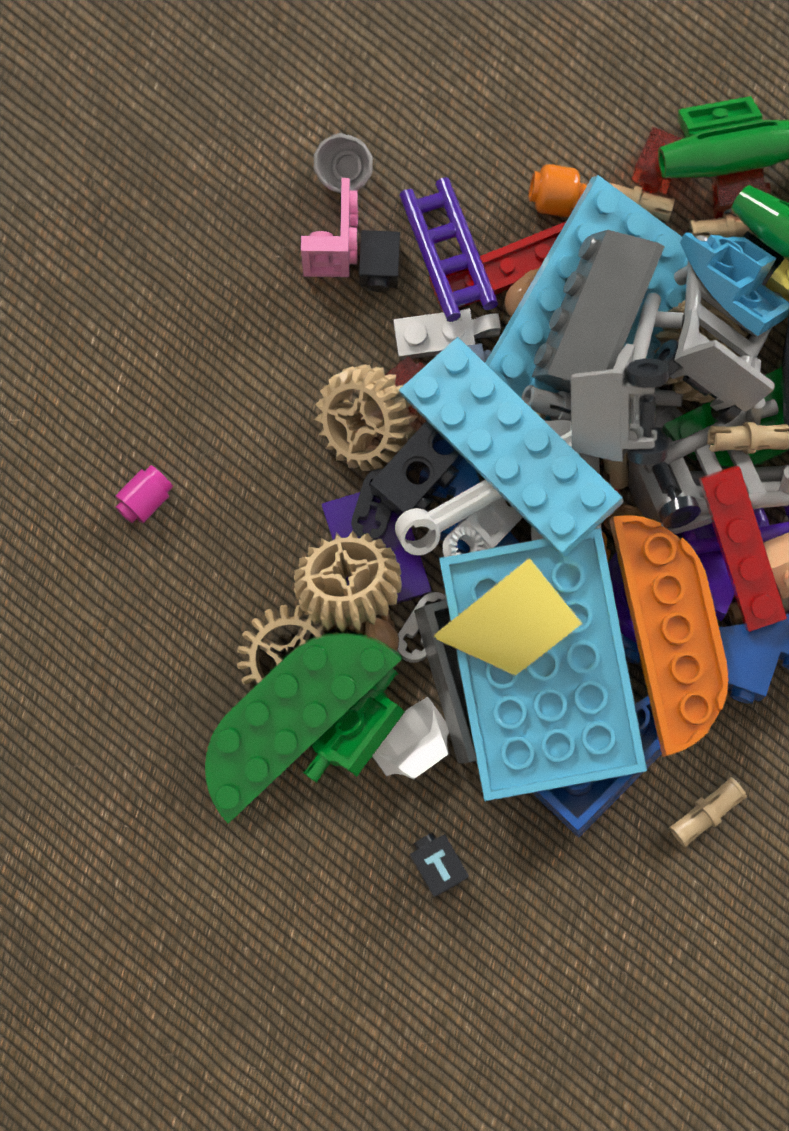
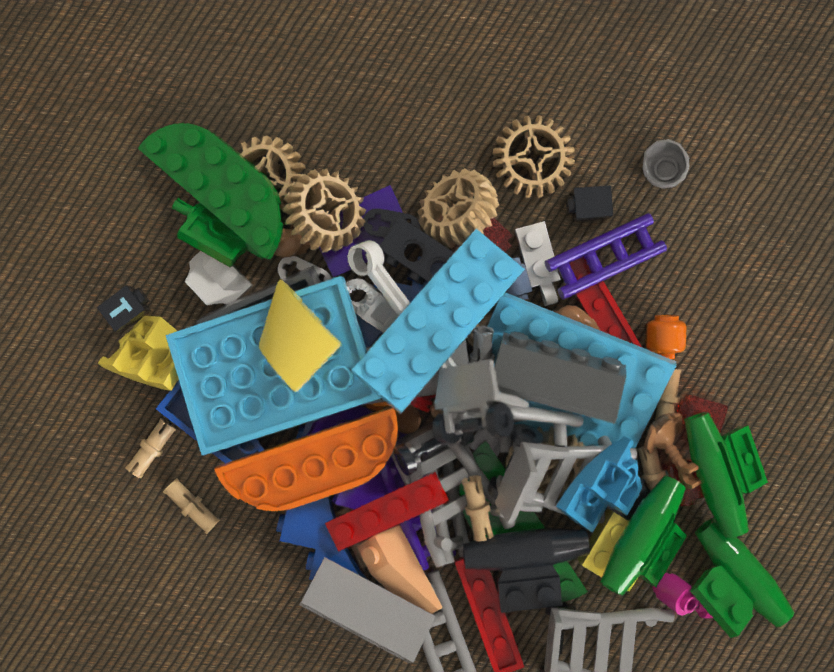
camera: 85 degrees right, 10 degrees up
(143, 495) = (378, 47): dark pink brick -> none
(296, 321) = (531, 142): none -> tan gear
(329, 254) = (587, 156): bright pink bracket -> none
(503, 841) = (145, 354): none -> light yellow slope
(626, 856) = (151, 448): none -> tan pin
(682, 208) = (662, 436): none -> medium nougat piece

